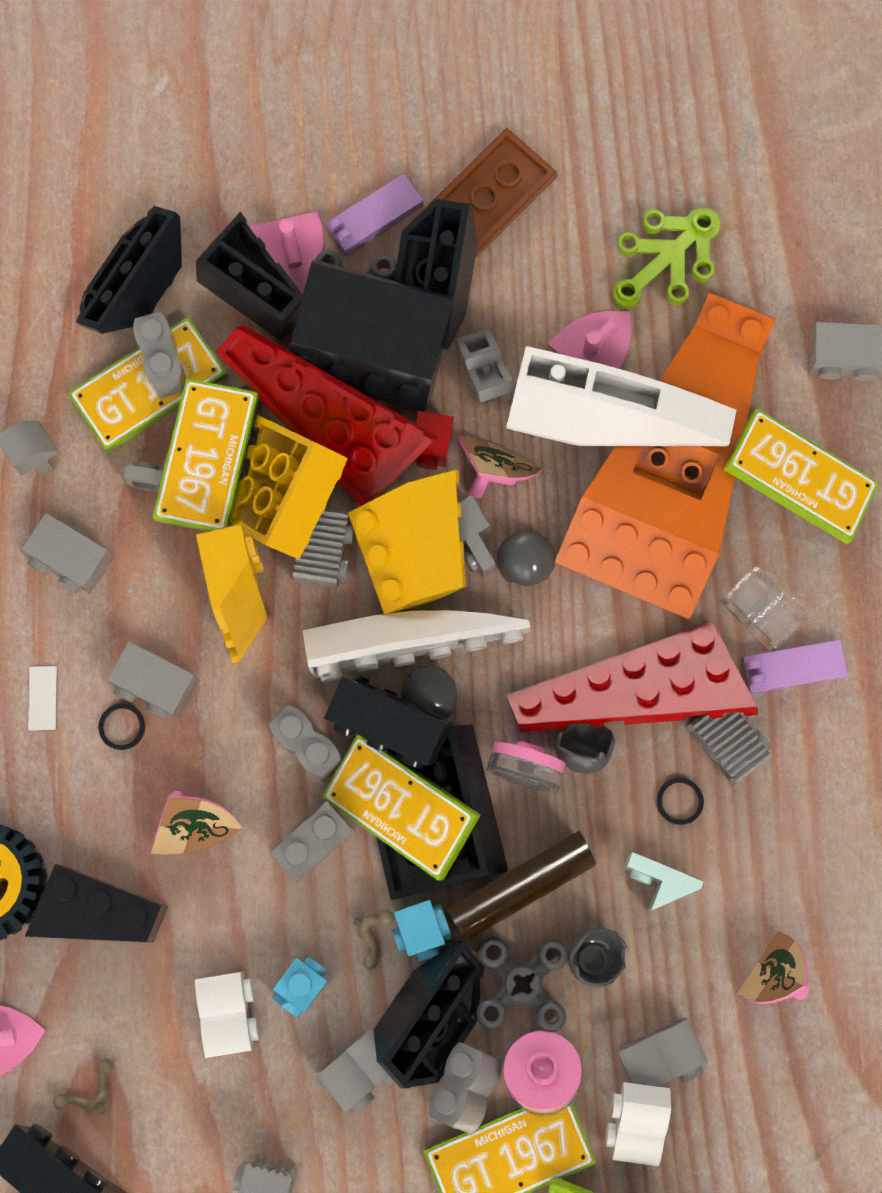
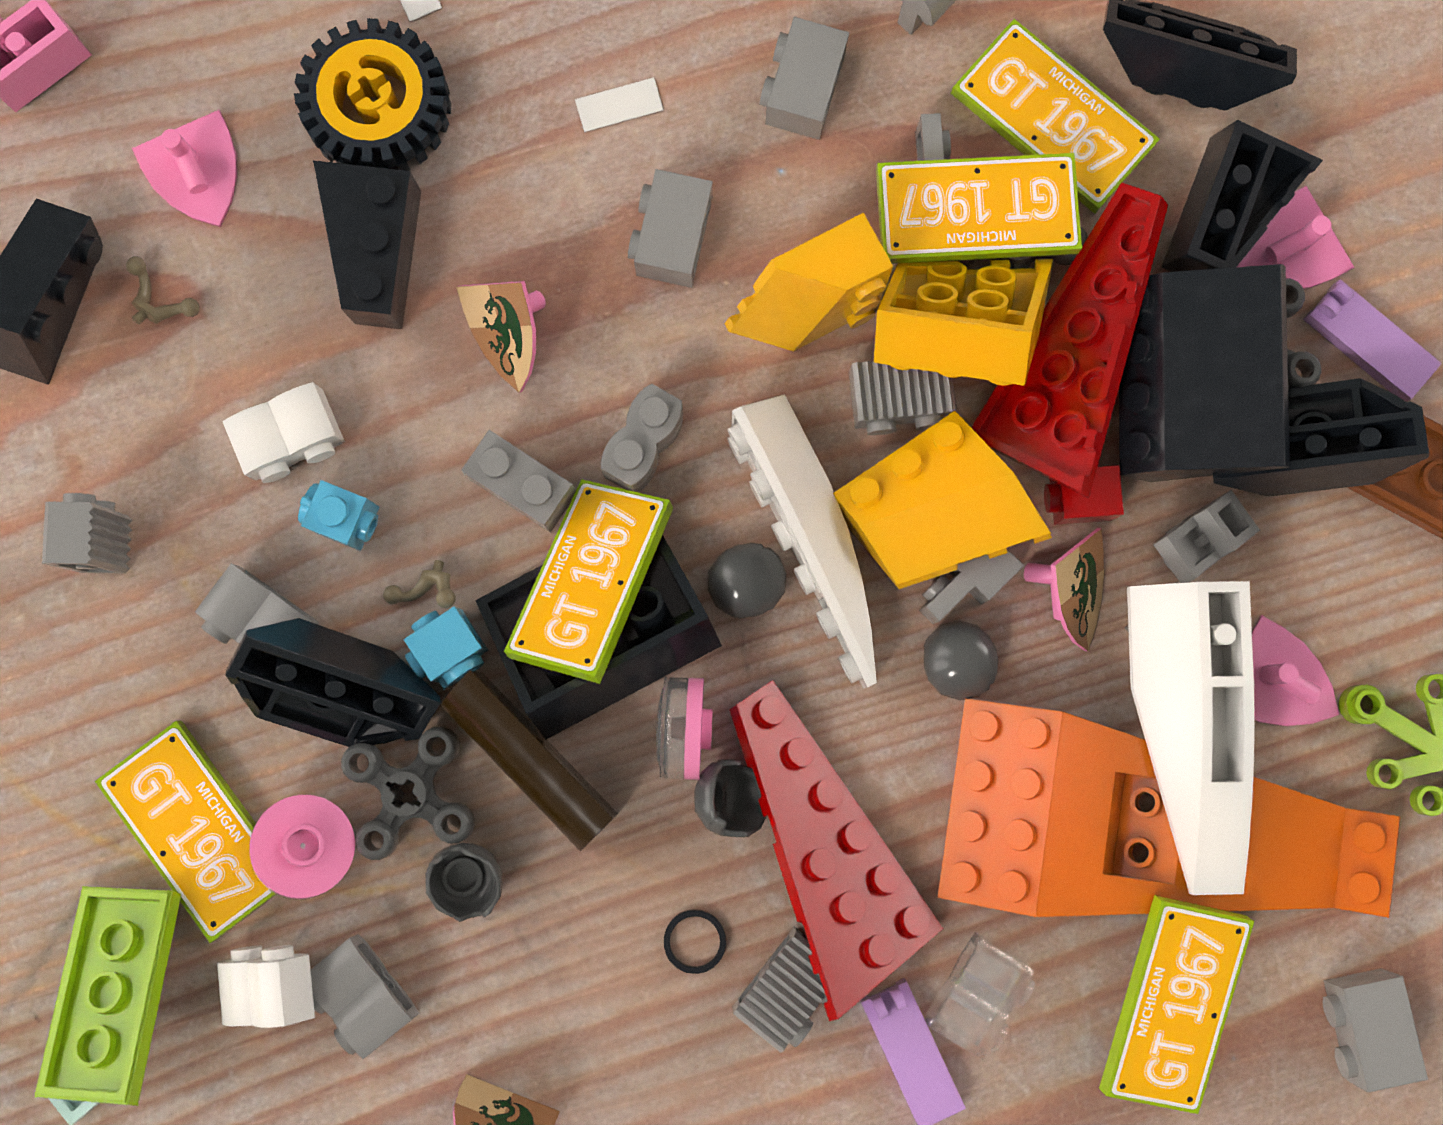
camera: 75 degrees right, 5 degrees up
(103, 718) = (604, 185): black piece -> none
(159, 354) = (1097, 112): light grey brick -> none
(387, 721) = (692, 532): black wedge -> none
(463, 1093) = (249, 753): light grey brick -> none
(670, 884) = (577, 955): light aqua slope -> none

